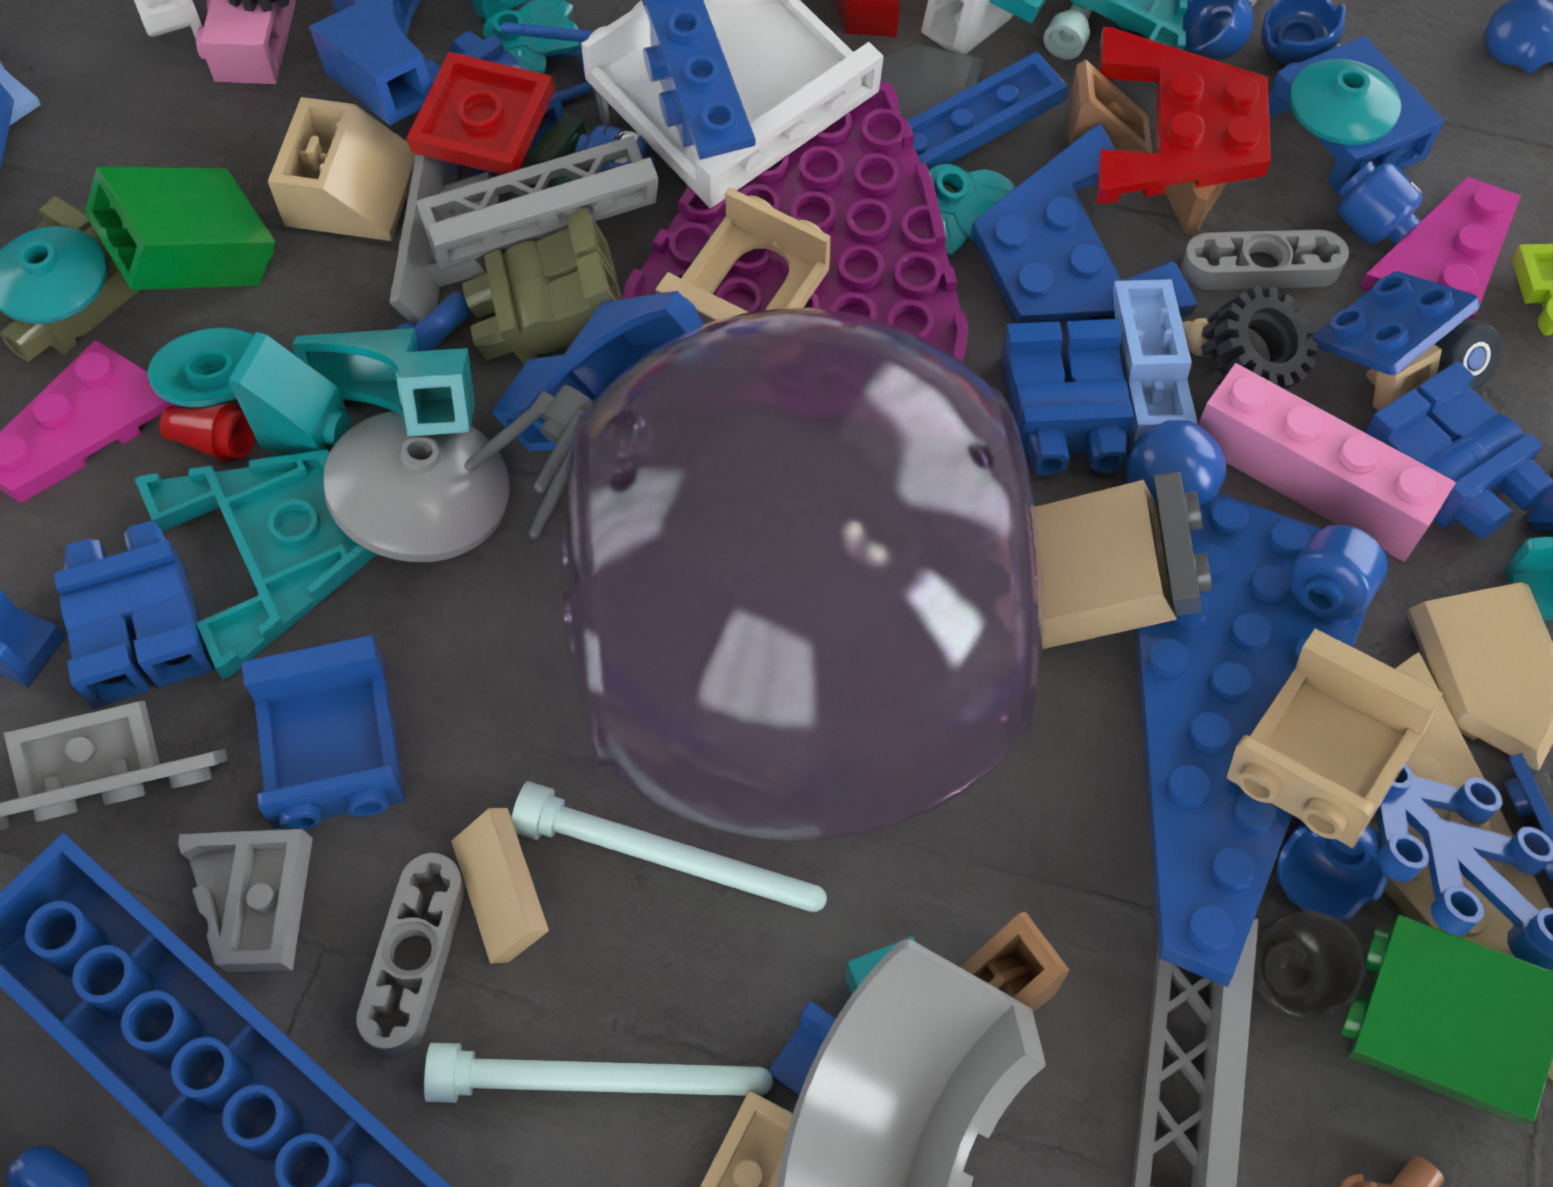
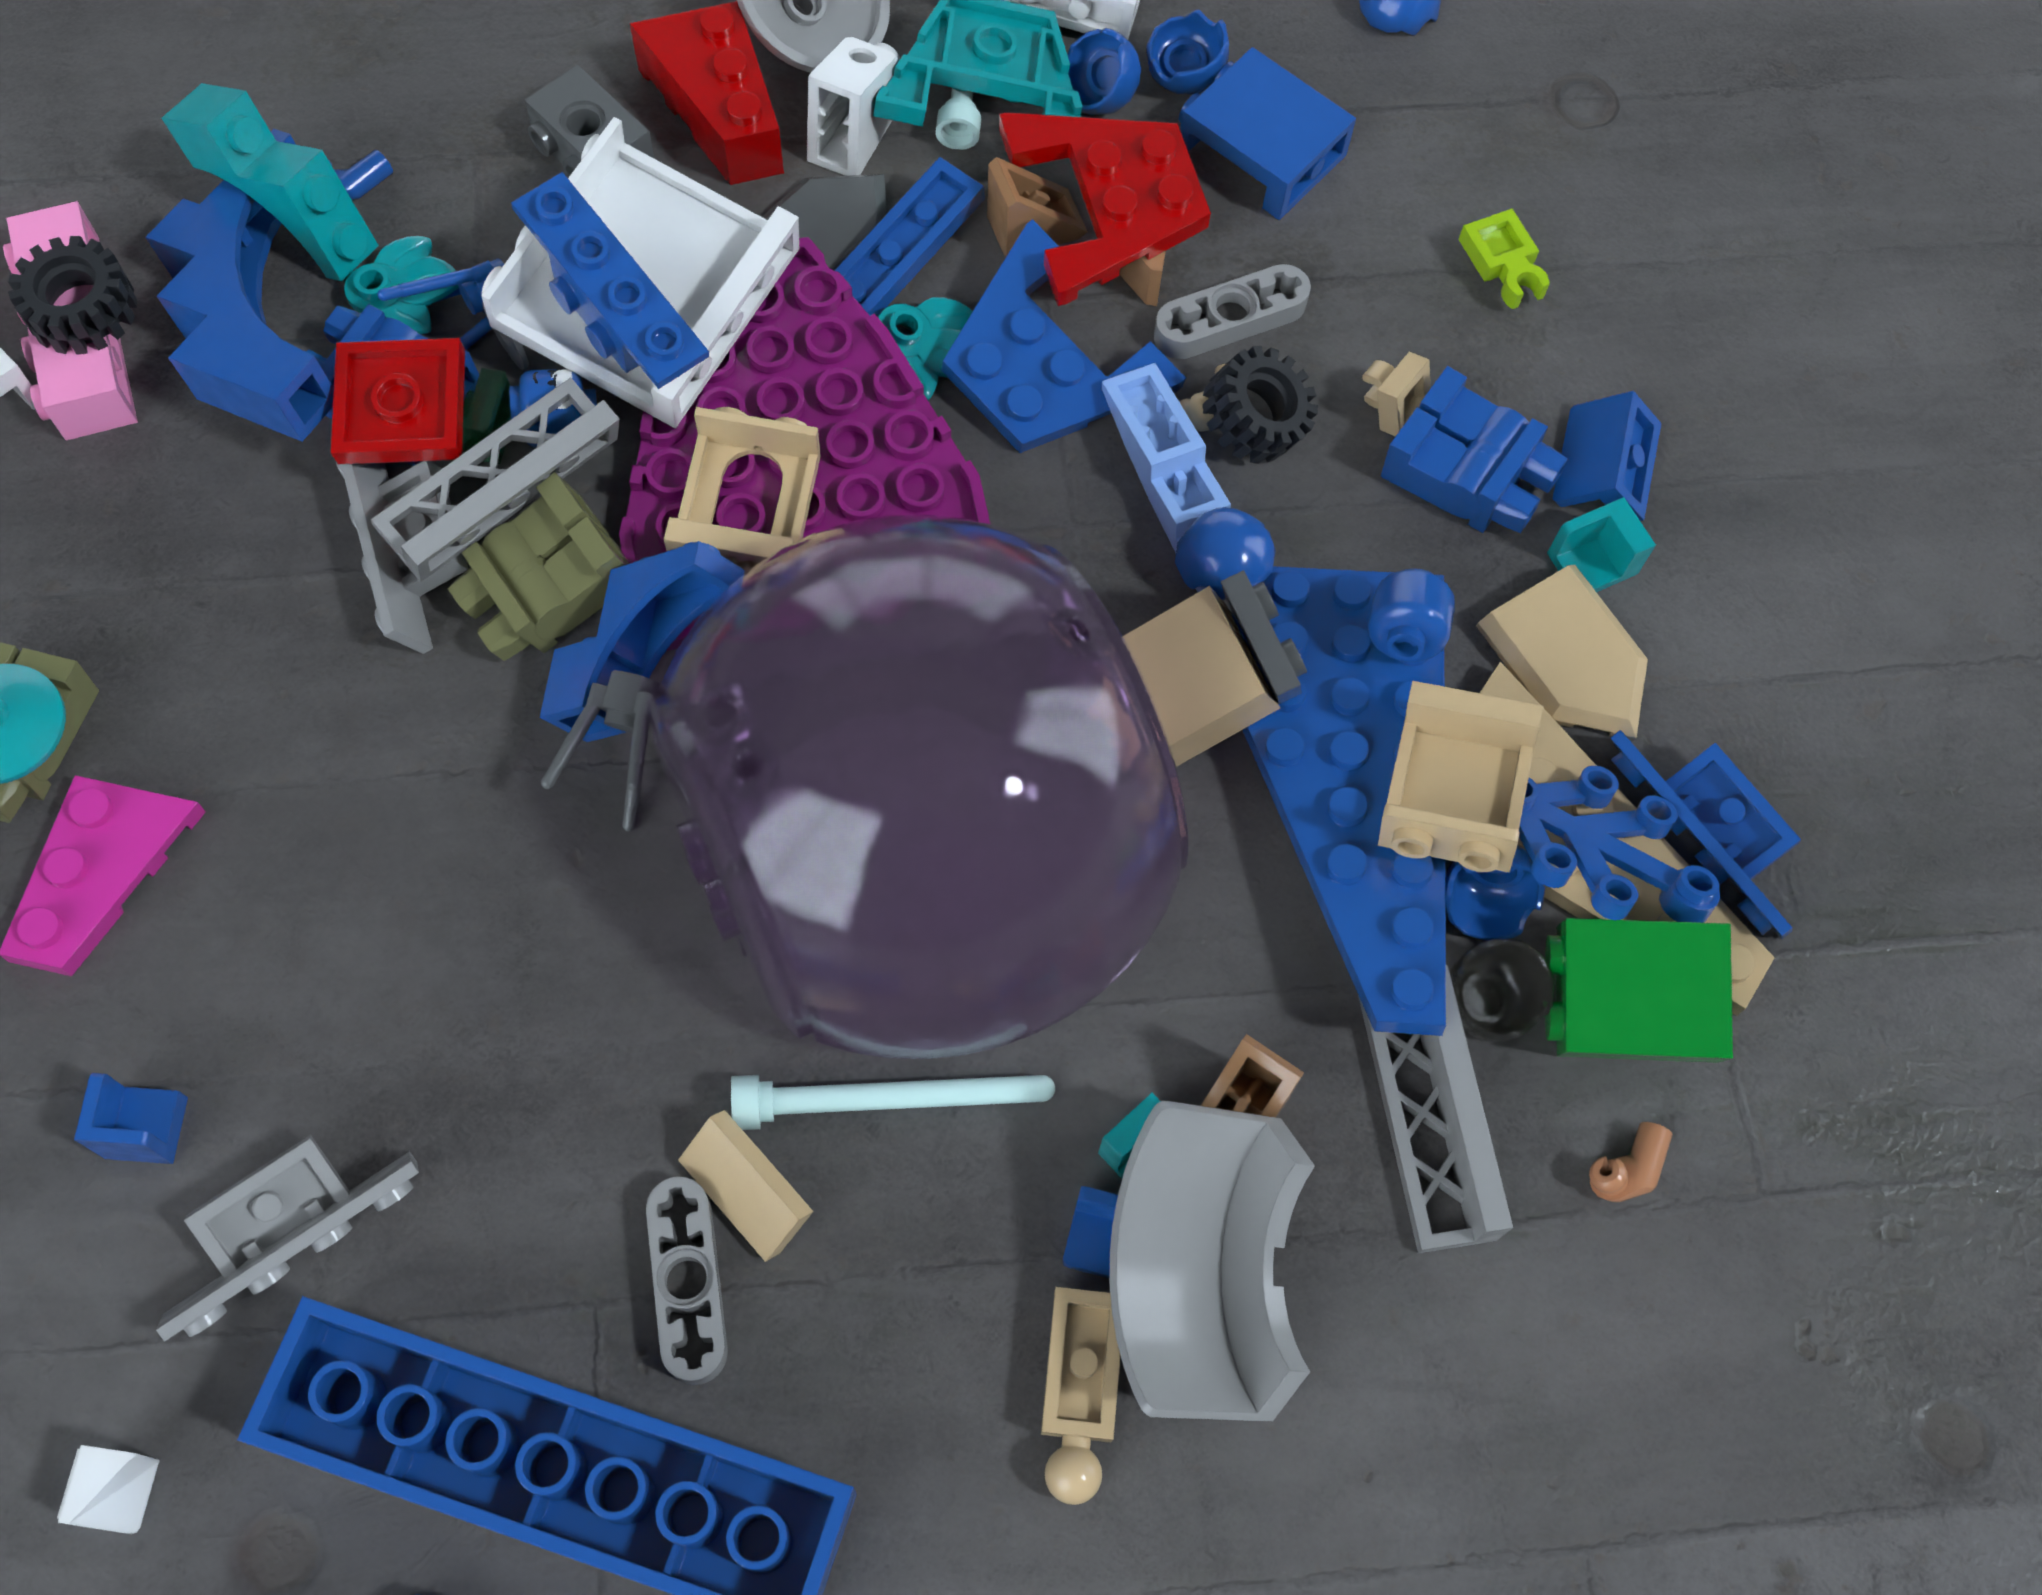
camera: 25 degrees left, 5 degrees up
(129, 616) = (238, 1033): blue hips -> none
(178, 227) = (118, 626): green brick -> none
(198, 367) = (216, 765): teal dish -> none
(212, 430) = (249, 830): red cone -> none
(250, 894) = (503, 1284): light grey wing -> none
(282, 534) = (380, 906): teal wing -> none
(287, 400) = (327, 778): teal slope -> none
(324, 733) = (508, 1102): blue panel -> none
(341, 172) = (266, 505): tan slope -> none
(387, 370) = (406, 709): teal arch -> none
(413, 505) = (486, 844): light grey dish -> none
(440, 322) = (437, 645): blue arm -> none
(456, 1073) = (779, 1373): light aqua piece -> none
(1068, 393) = (1098, 509): blue hips -> none
(1323, 461) = (1358, 505): bright pink brick -> none
(1345, 101) = (1257, 125): teal dish -> none
(1379, 203) = (1321, 221): blue head -> none
(1406, 318) = (1385, 340): blue plate -> none
(1455, 241) = (1402, 251): dark pink wing -> none

